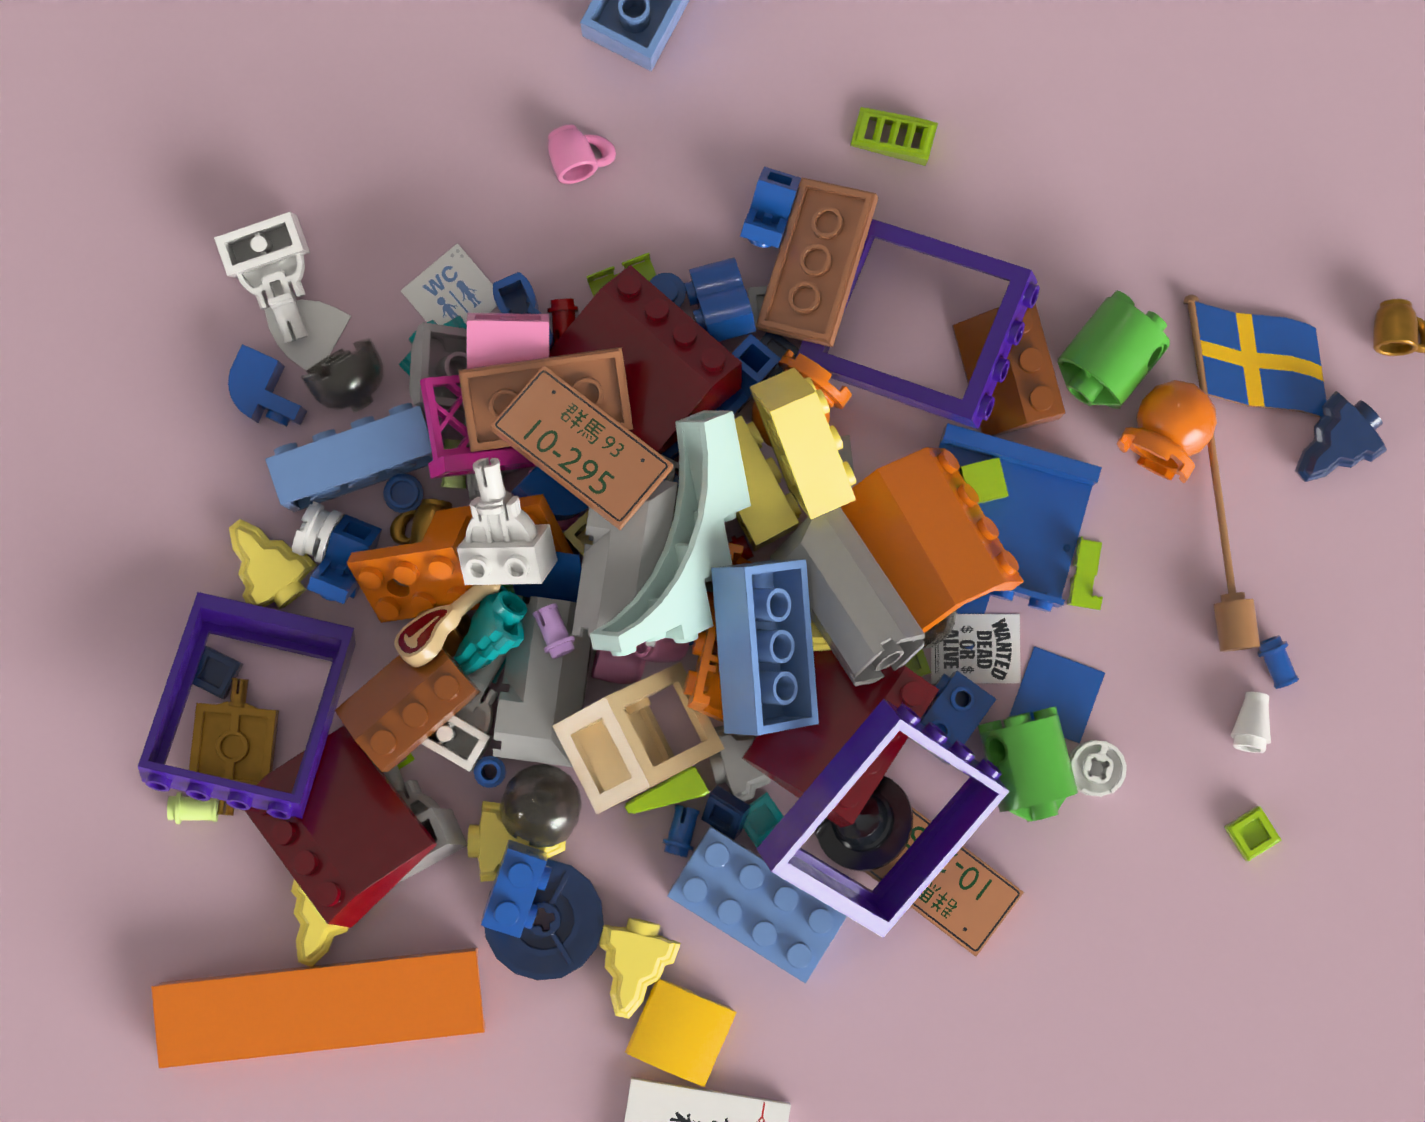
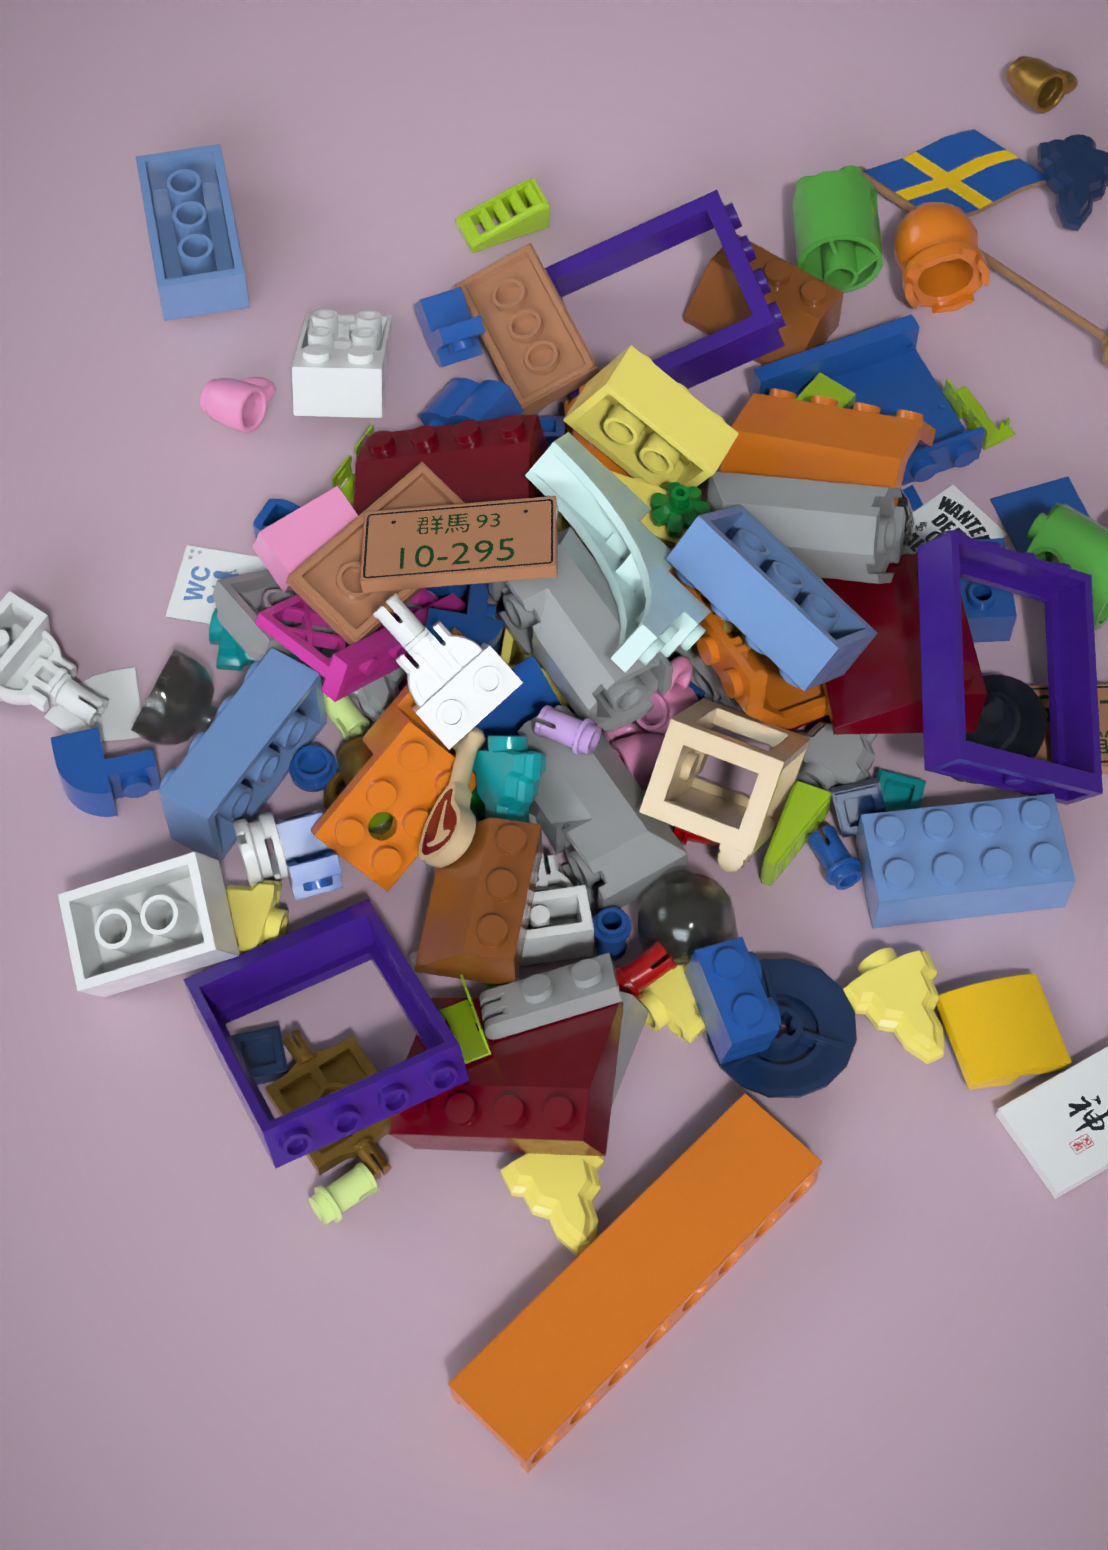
camera: 35 degrees left, 25 degrees down
(198, 541) = (148, 925): none -> white brick
(332, 779) = (462, 1020): none -> lime piece
(398, 803) = (549, 997): none -> light grey hinge
(472, 820) = (641, 973): none -> red pin
(674, 177) = (342, 364): none -> white slope
(771, 526) = (677, 508): none -> green plant

